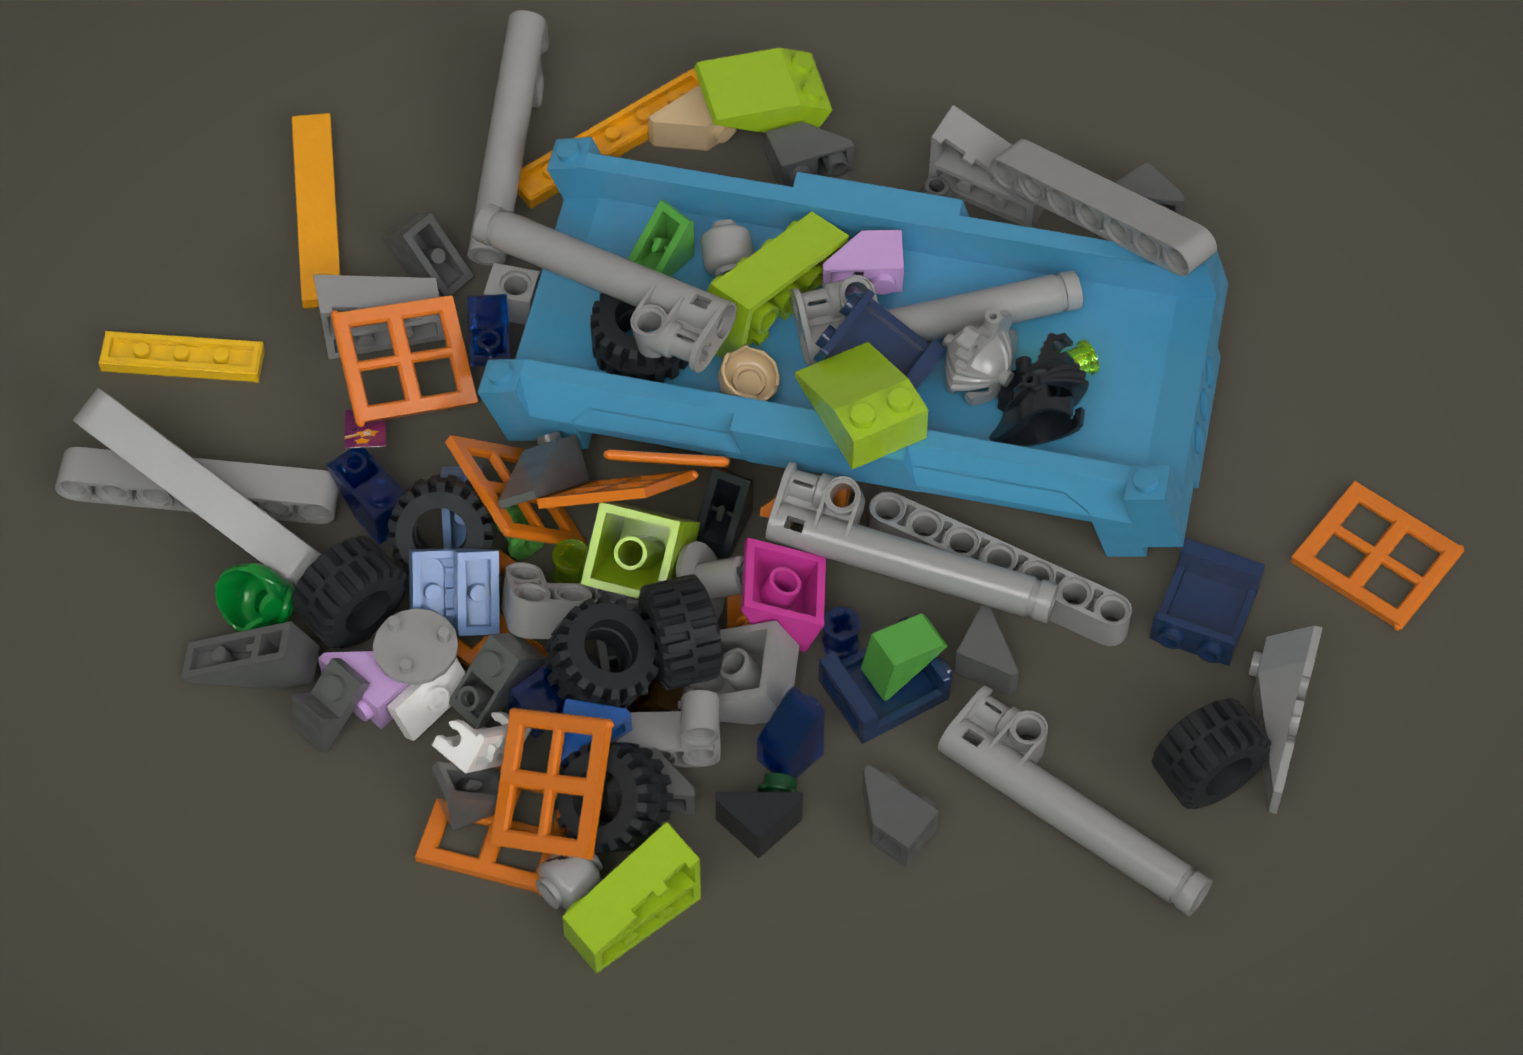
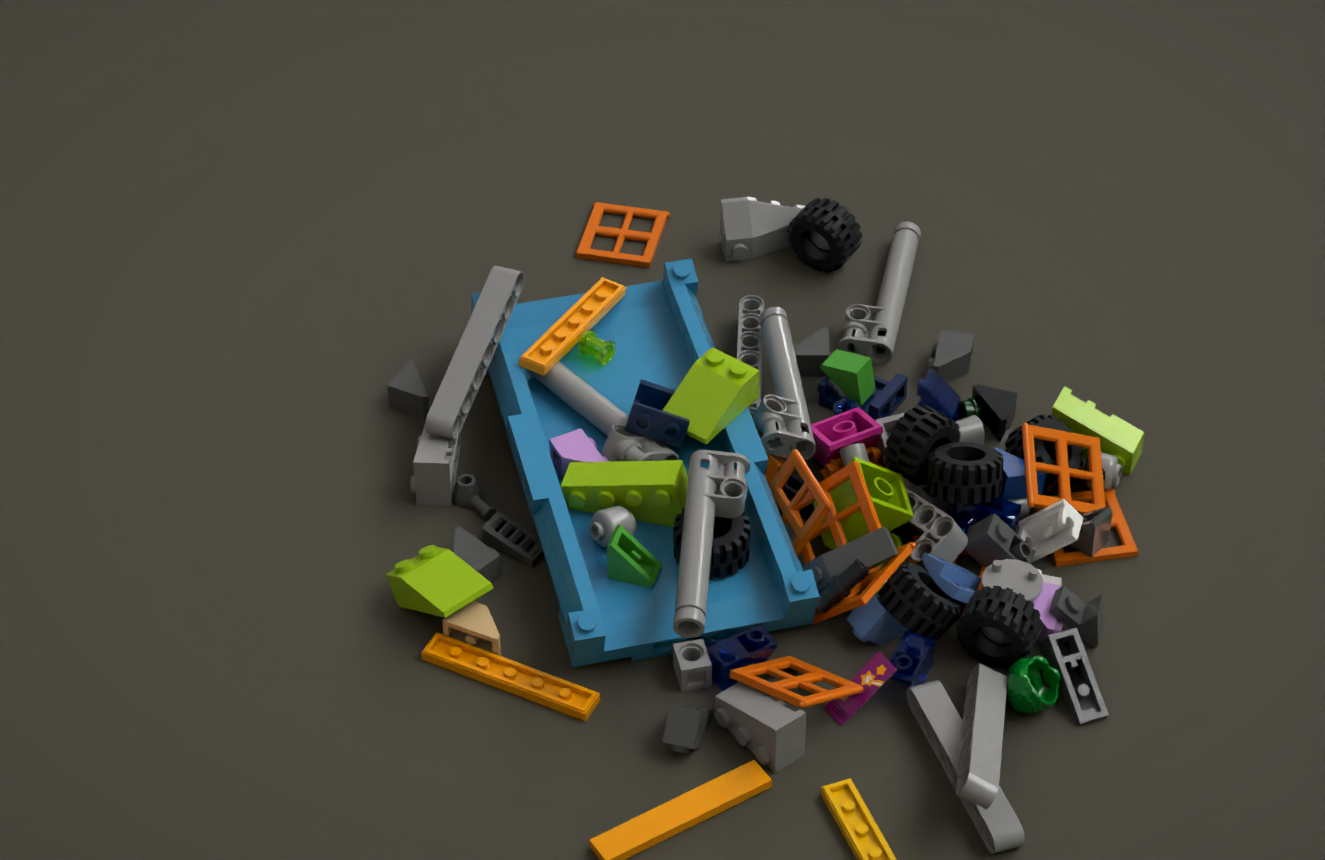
camera: 115 degrees left, 15 degrees down
(505, 447) = (841, 585): none -> black pin
(517, 91) = (497, 722): light grey piece -> none
(981, 357) = (622, 371): light grey helmet -> none
(1042, 397) = (639, 343): black helmet -> none
(1113, 339) = (572, 326): none -> light orange tile
(1207, 602) = (721, 284): dark blue panel -> none

